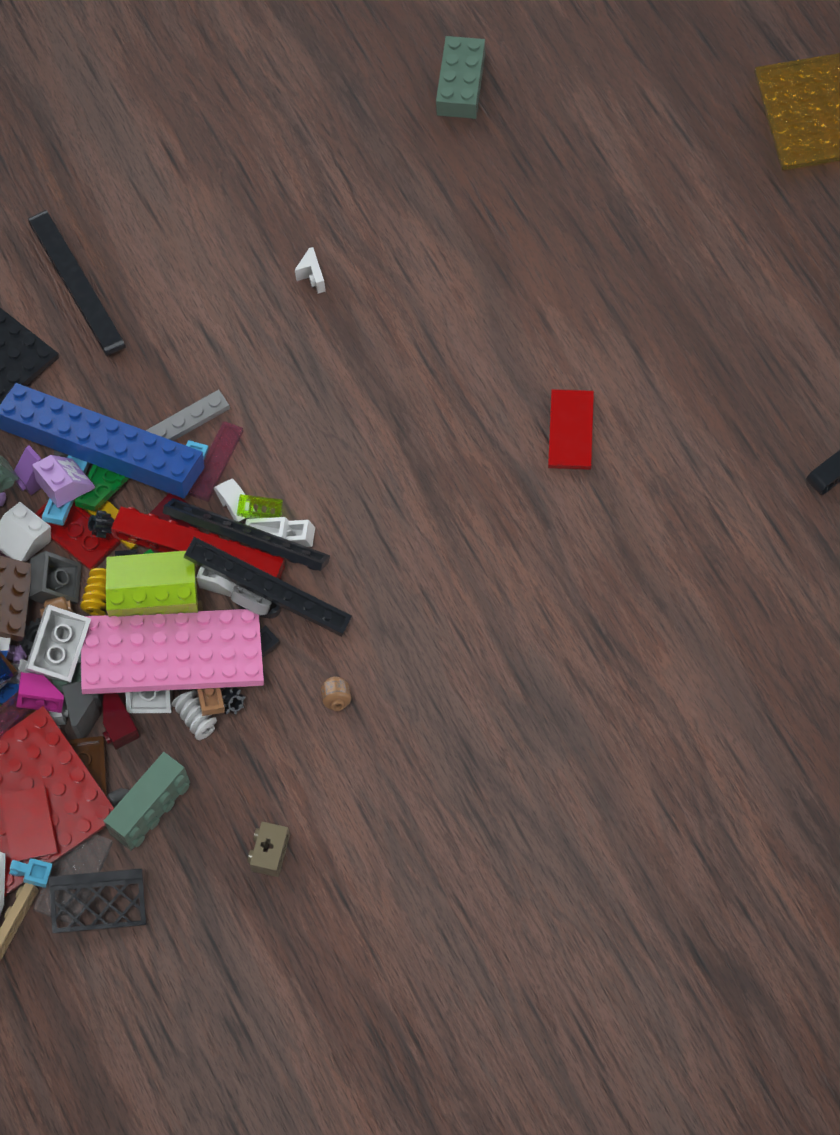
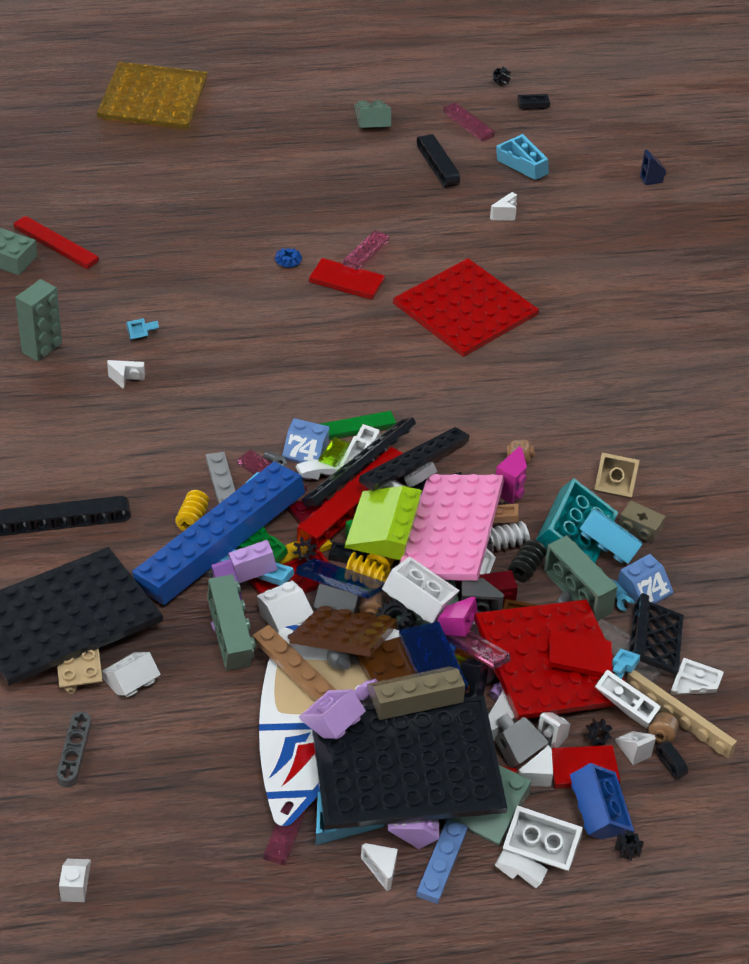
camera: 80 degrees left, 20 degrees down
(54, 955) = (696, 679): none -> white wing
(66, 568) = (340, 578): none -> clear blue tile
(125, 406) = (192, 509): none -> yellow piece
(154, 845) = (622, 596): none -> medium azure plate
(164, 743) = (527, 560): none -> pearl dark grey piece
(175, 873) = (645, 577): none -> medium blue slope
(228, 819) = (610, 536): none -> medium azure slope
(238, 459) = (270, 456): none -> dark grey arm
(242, 783) = (568, 514): none -> teal slope
(269, 475) = (305, 441): none -> medium blue slope
(282, 693) = (514, 475): none -> dark pink slope
(323, 519) = (352, 426): none -> green tile
(326, 160) = (39, 320): none -> sand green brick
(339, 805) = (616, 474): none -> tan slope
(387, 257) = (139, 328): none -> medium azure plate
(503, 125) = (56, 242): none -> red tile
(577, 570) = (465, 307): none -> red plate
(582, 365) = (288, 257): none -> blue gear
(629, 432) = (366, 250): none -> clear pink tile
(783, 556) = (505, 208): none -> white slope

